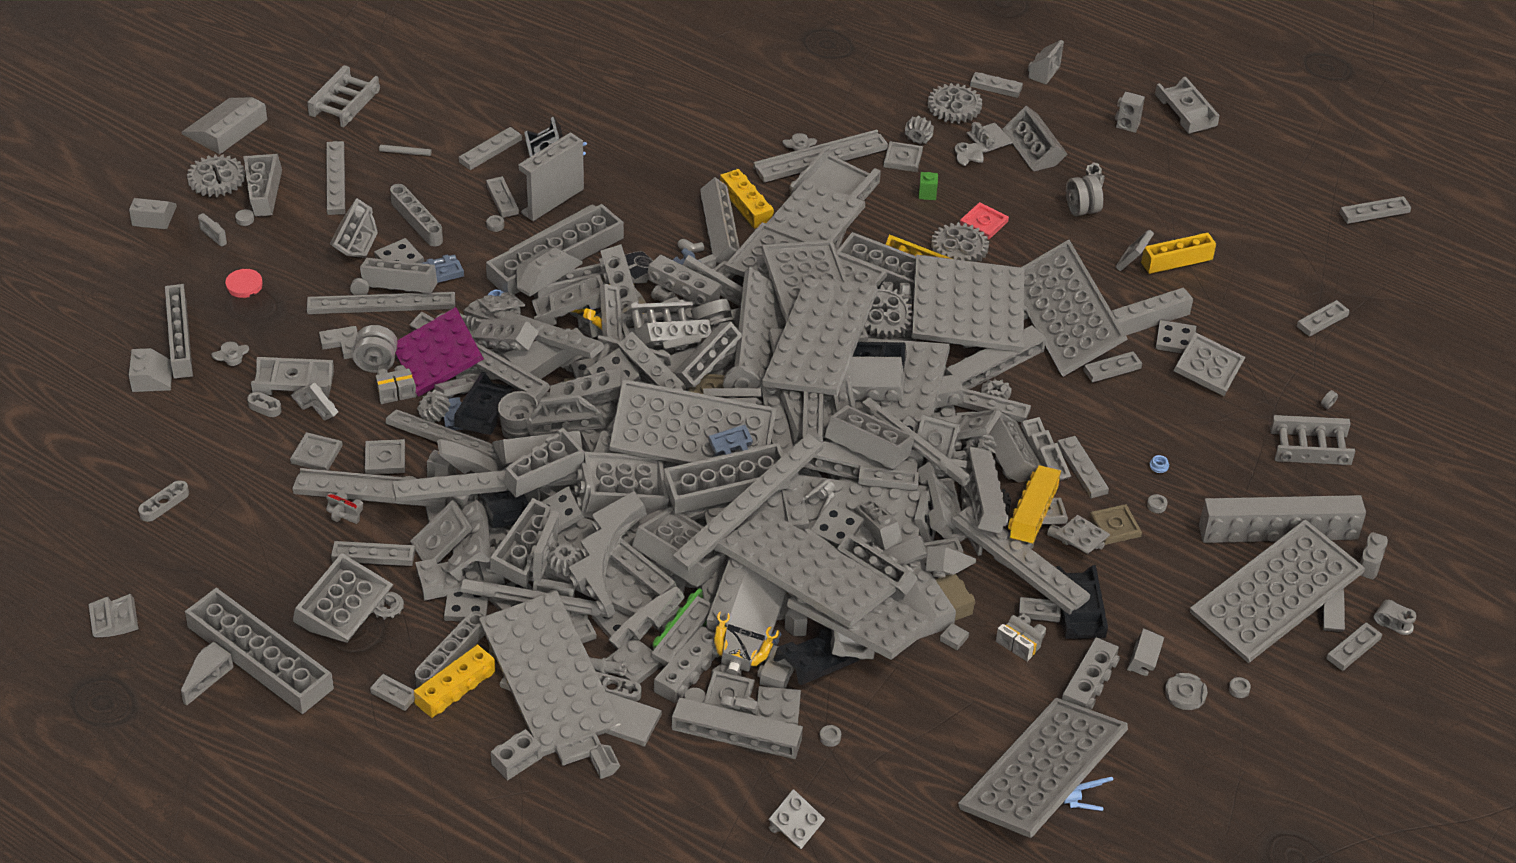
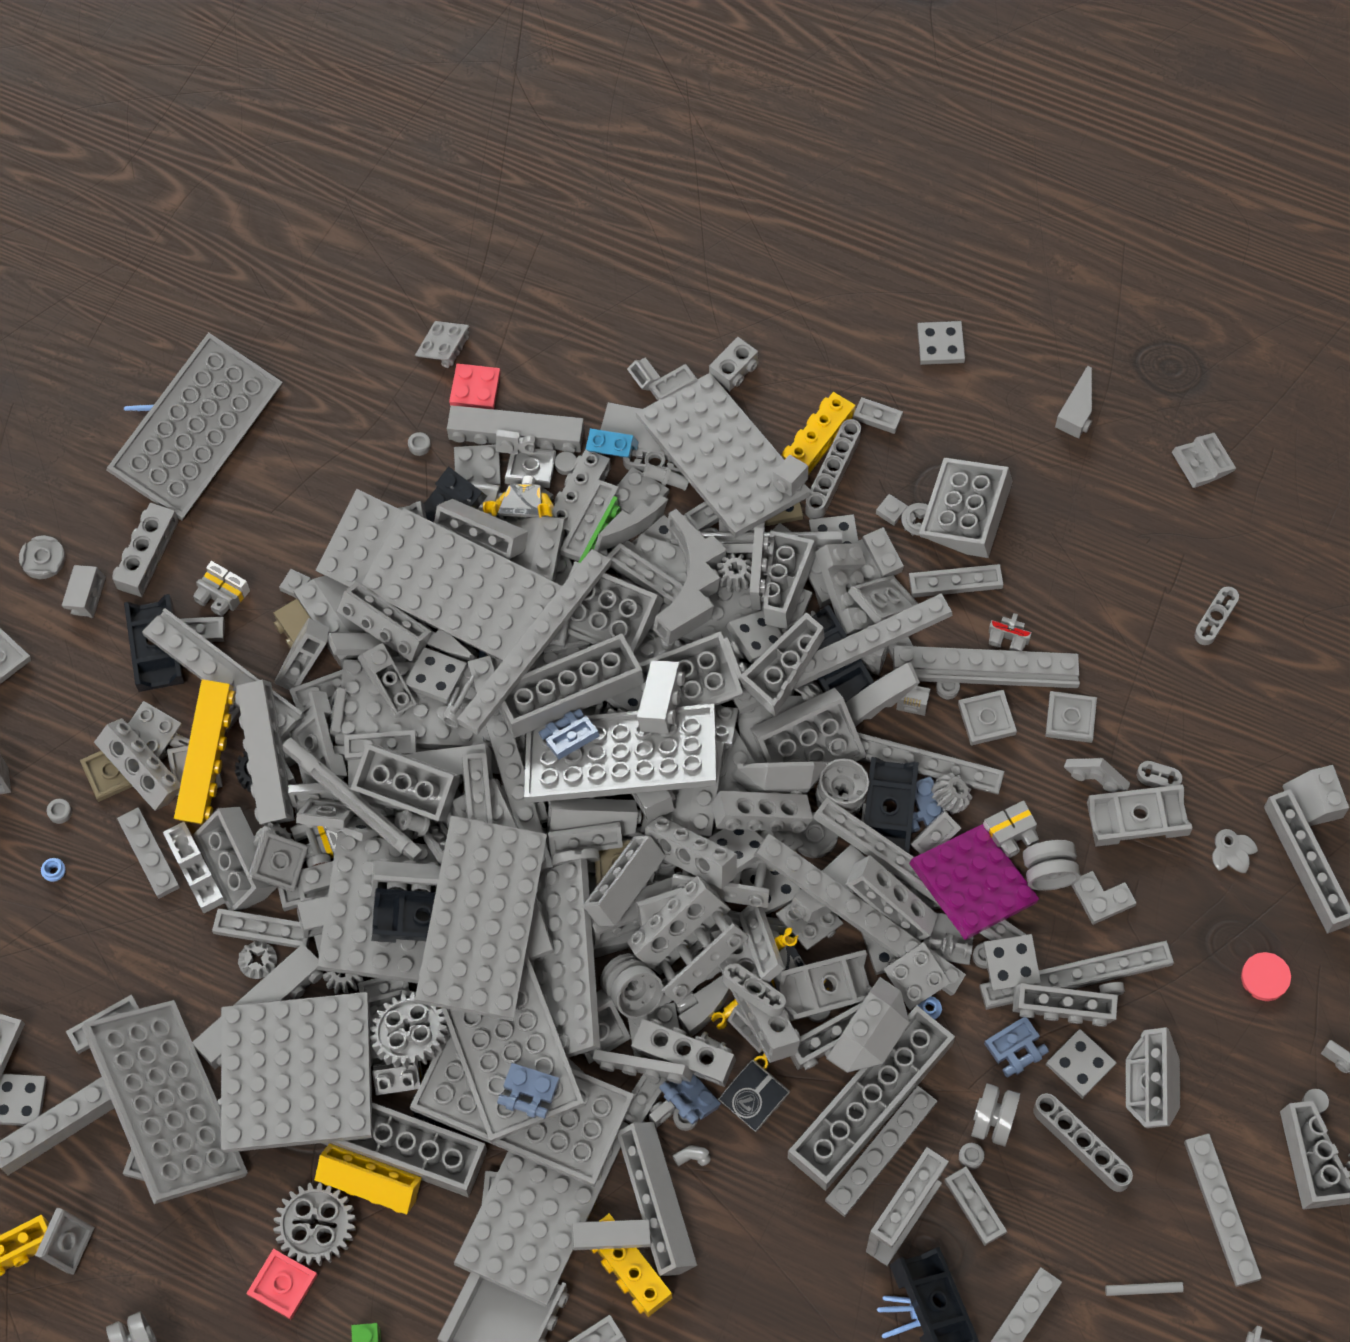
camera: 175 degrees right, 20 degrees up
(260, 650) = (1032, 431): light grey brick -> none
(310, 750) = (940, 342): none -> light grey tile
(408, 618) = (891, 509): none -> light grey plate
(427, 303) = (1011, 962): none -> light grey tile
(472, 226) = (995, 1114): none -> light grey wheel
(495, 618) = (790, 475): none -> light grey brick
(627, 290) = (752, 980): none -> light grey beam
(649, 689) = (611, 443): none -> dark azure bracket
(652, 453) = (660, 697): none -> brick
(755, 198) = (611, 1234): none -> light grey tile
(770, 777) = (475, 386): none -> coral plate
(783, 611) = (481, 528): none -> light grey brick
(796, 256) = (532, 1084): none -> sand blue plate
(1091, 508) = (138, 764): none -> light grey brick

